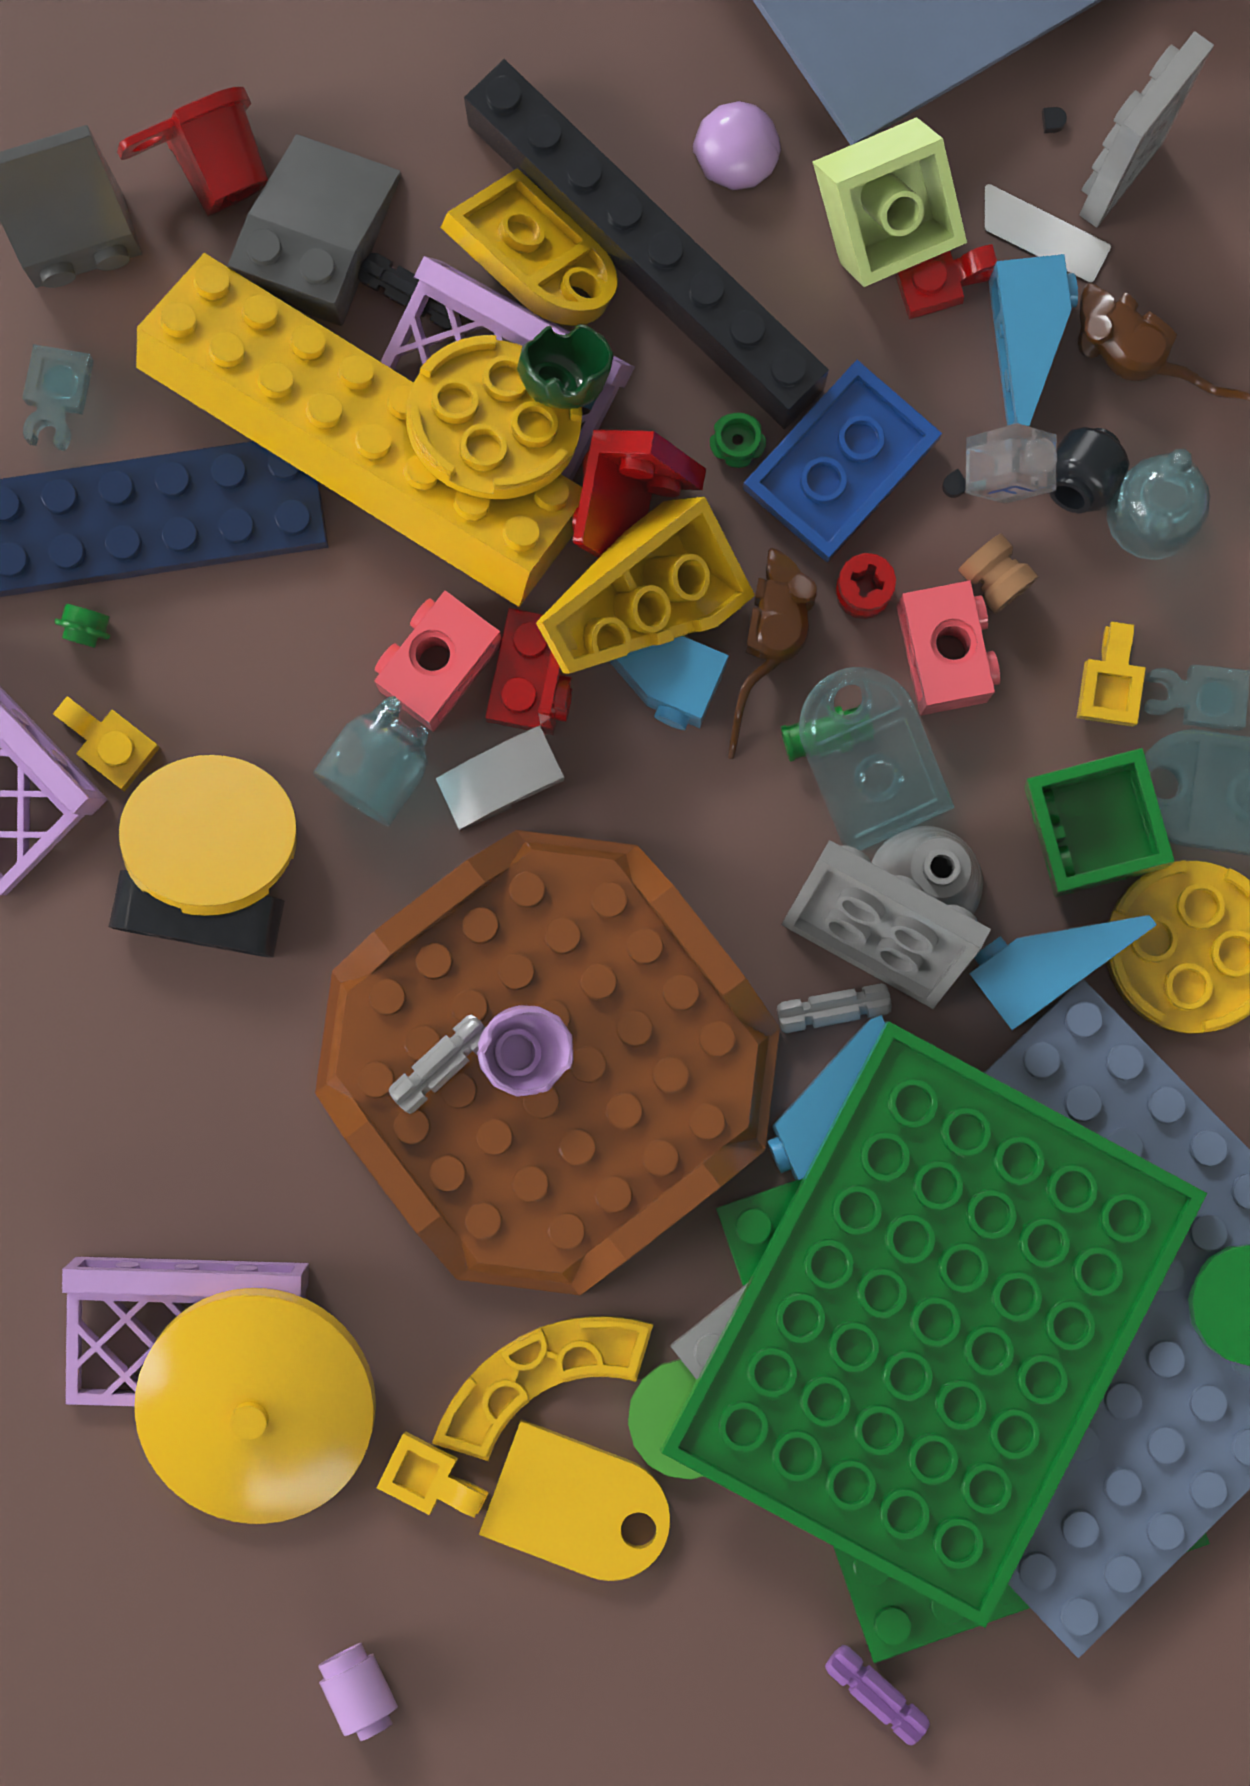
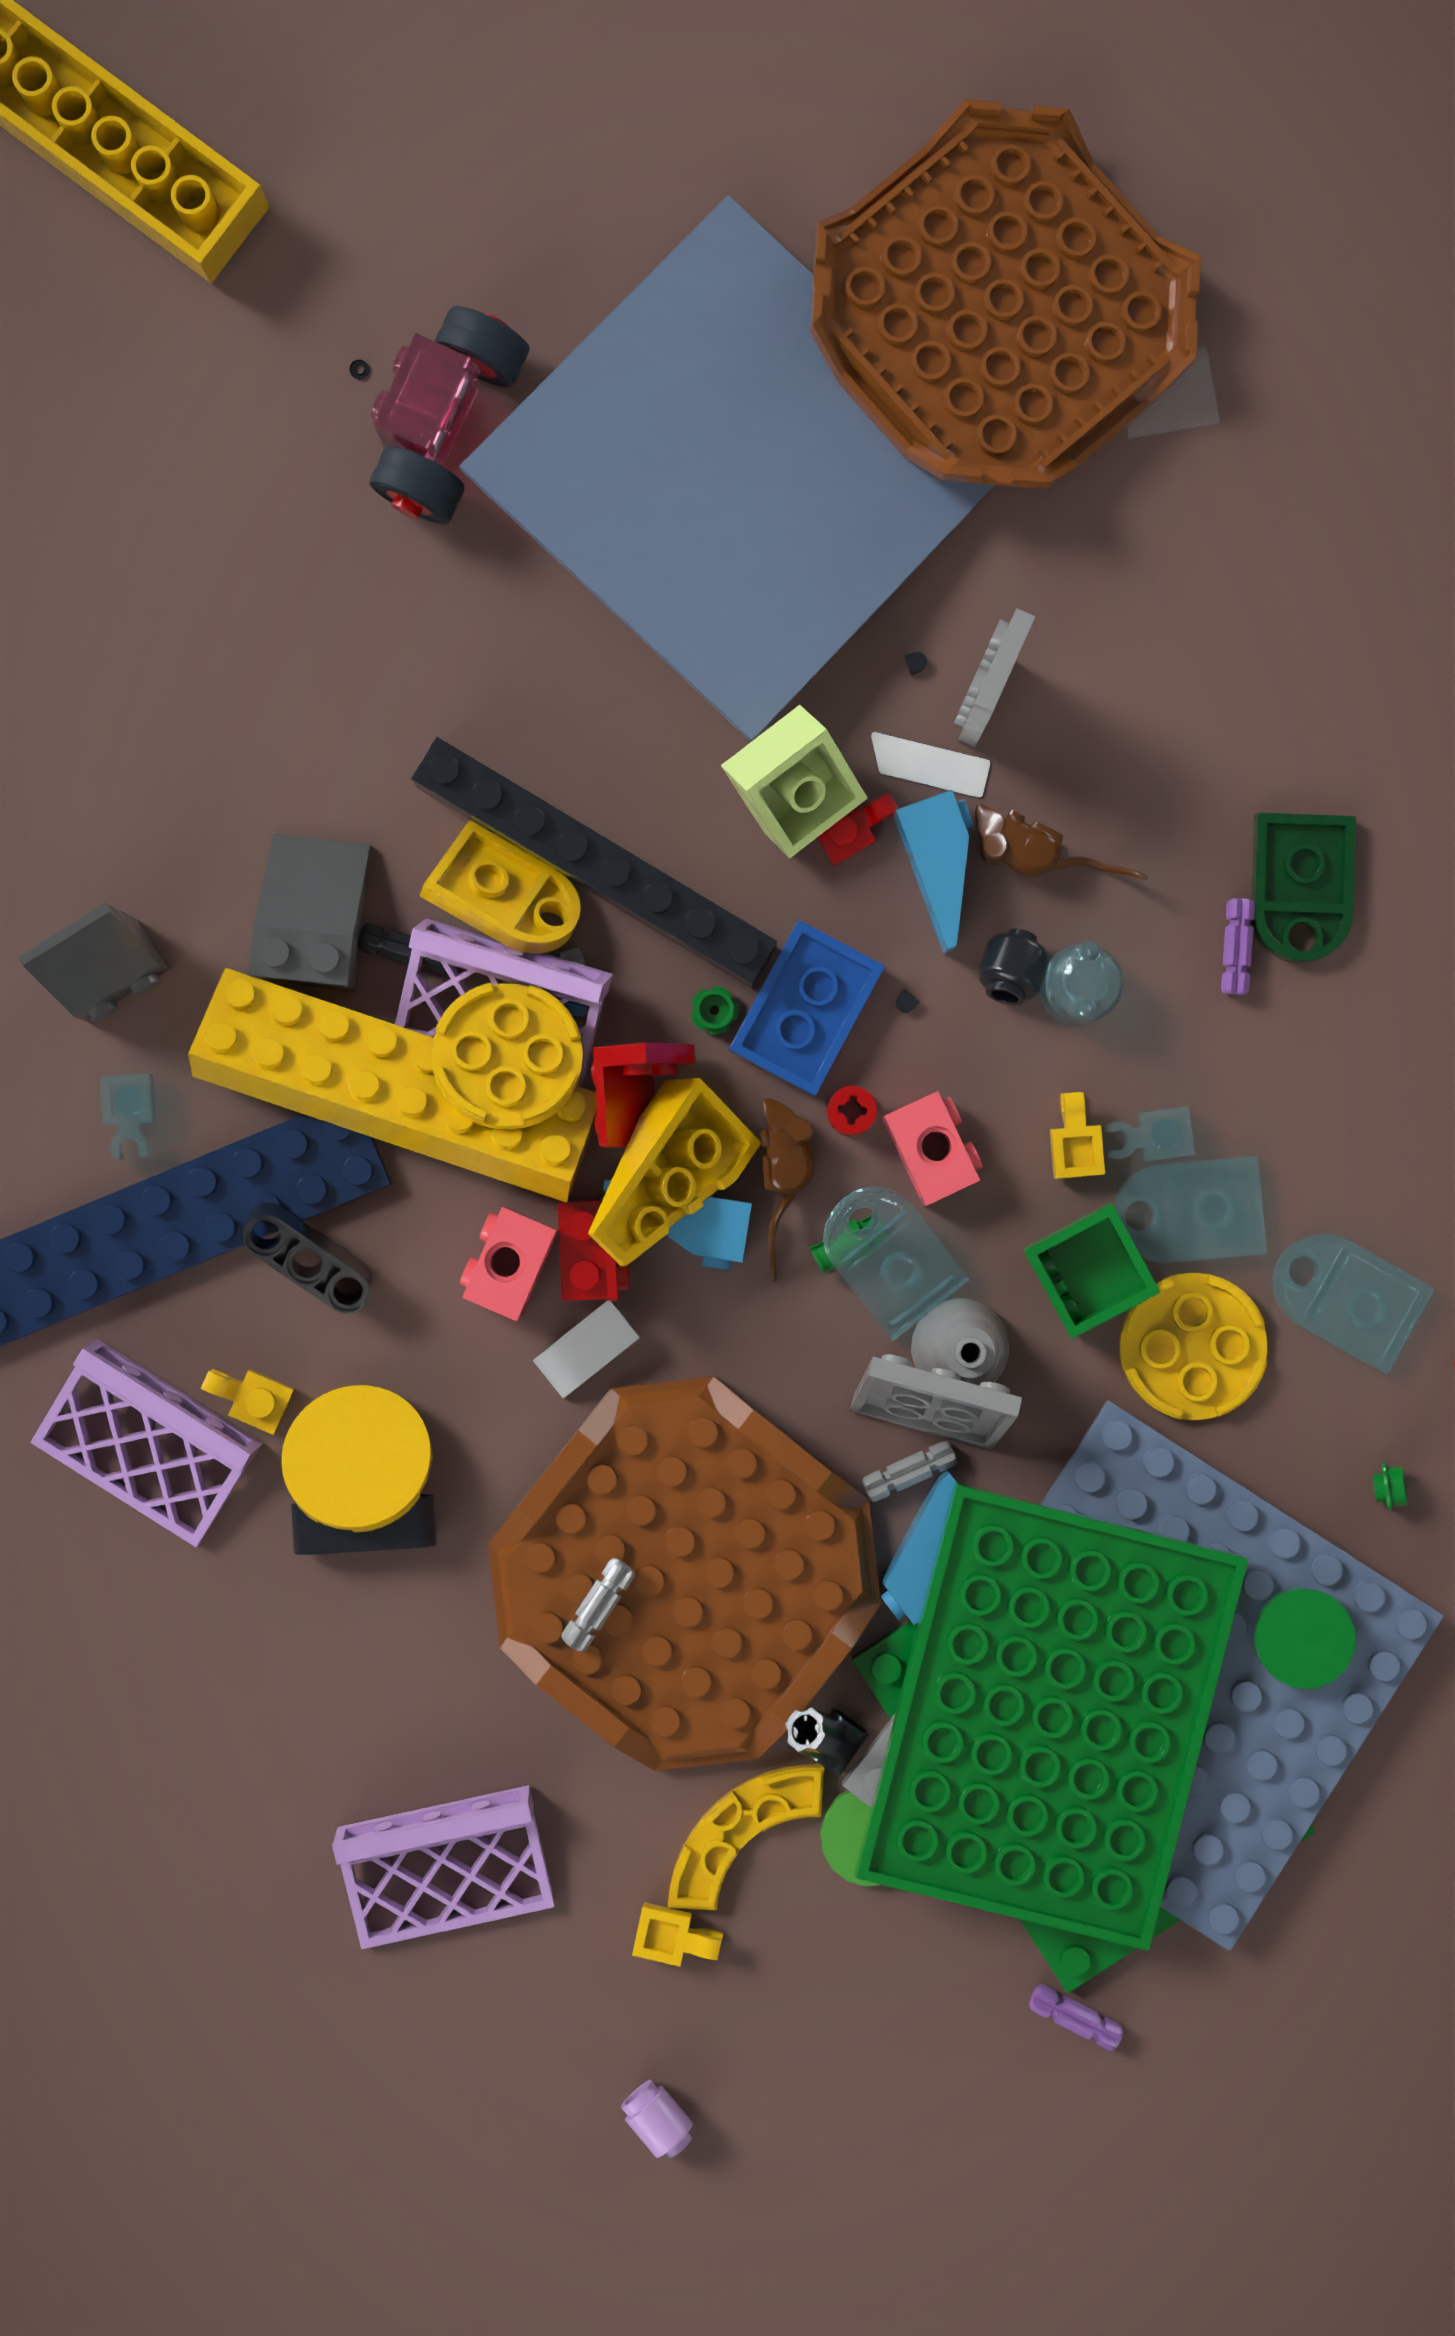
camera: 15 degrees left, 5 degrees up
(83, 625) = (205, 1304): green plate -> none
(184, 585) = (318, 1279): none -> black beam
(211, 146) = (210, 872): red container -> none
(255, 1405) = (517, 1914): yellow dish -> none
(375, 762) = (481, 1363): clear light blue piece -> none
(525, 1050) = (665, 1580): lavender hair -> none
(565, 368) = (557, 1003): dark green hair -> none
(570, 1503) = (791, 1926): yellow tile -> none
(663, 1285) = (826, 1737): none -> black piece
(737, 145) = (651, 753): lavender hair -> none
(1000, 575) = (963, 1076): medium nougat wheel -> none
(1011, 463) = (949, 980): clear brick -> none
(1045, 965) = (1074, 1396): dark azure slope -> none

